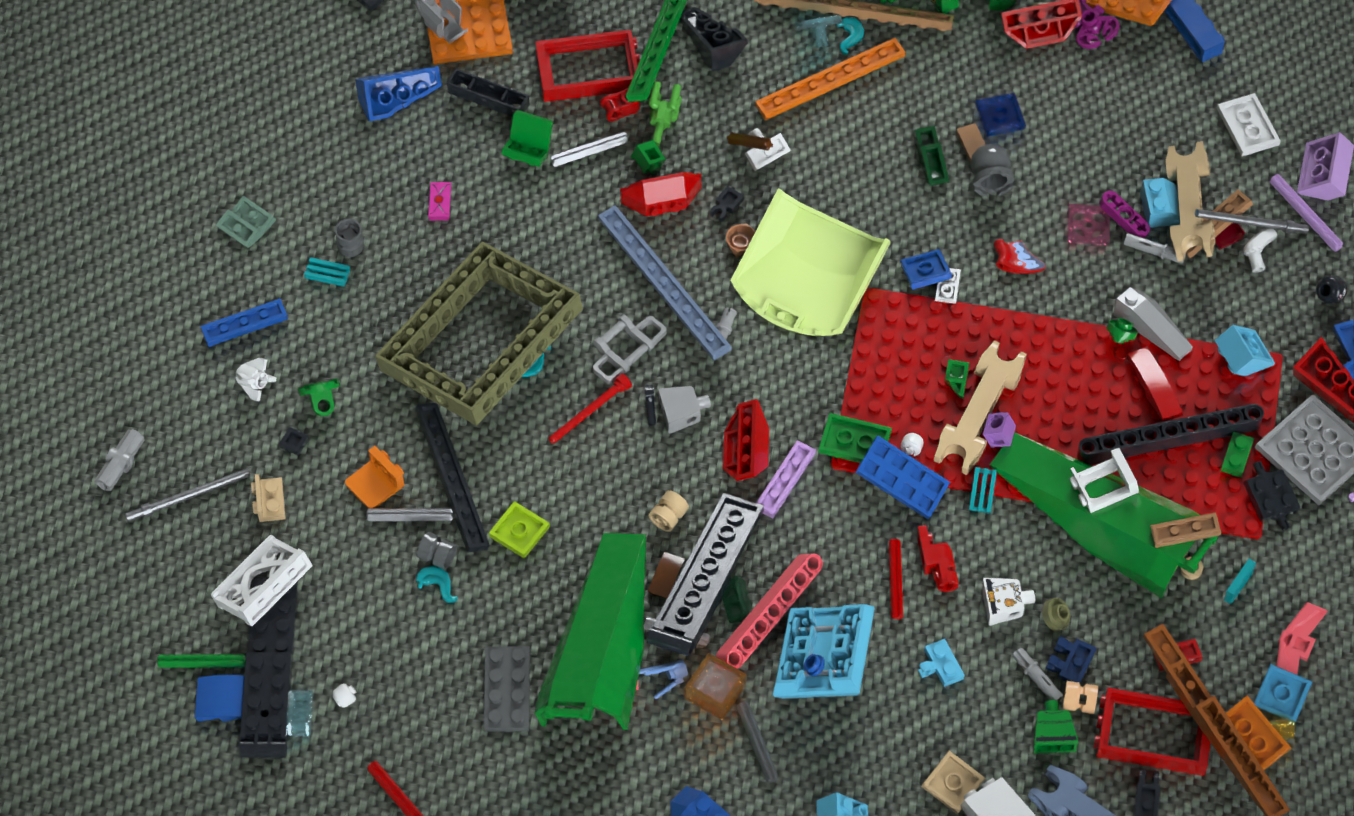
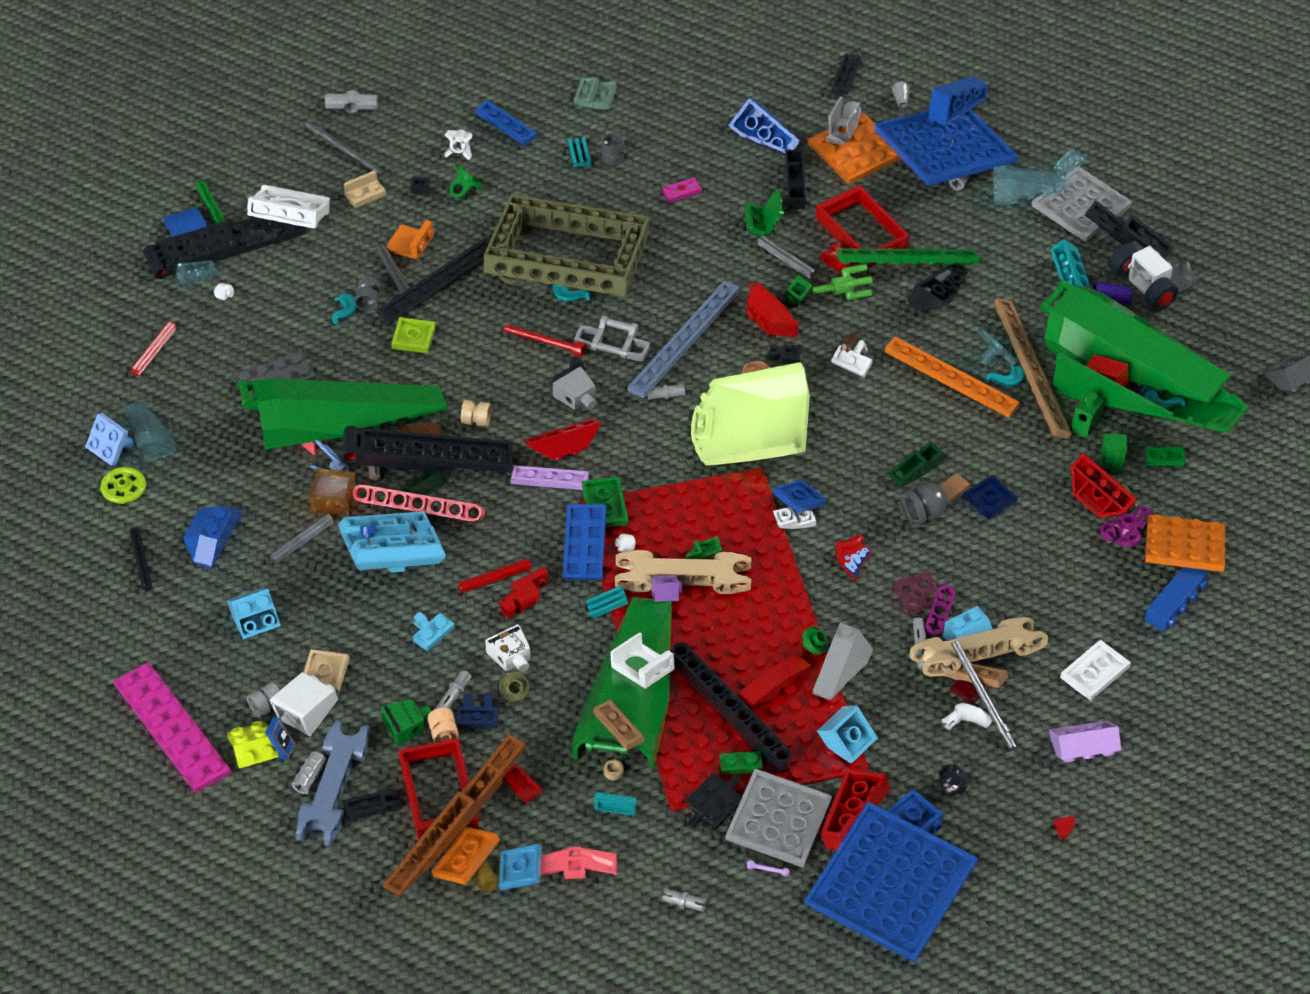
camera: 65 degrees right, 10 degrees down
(1306, 212) = (1029, 741): lavender axle -> none

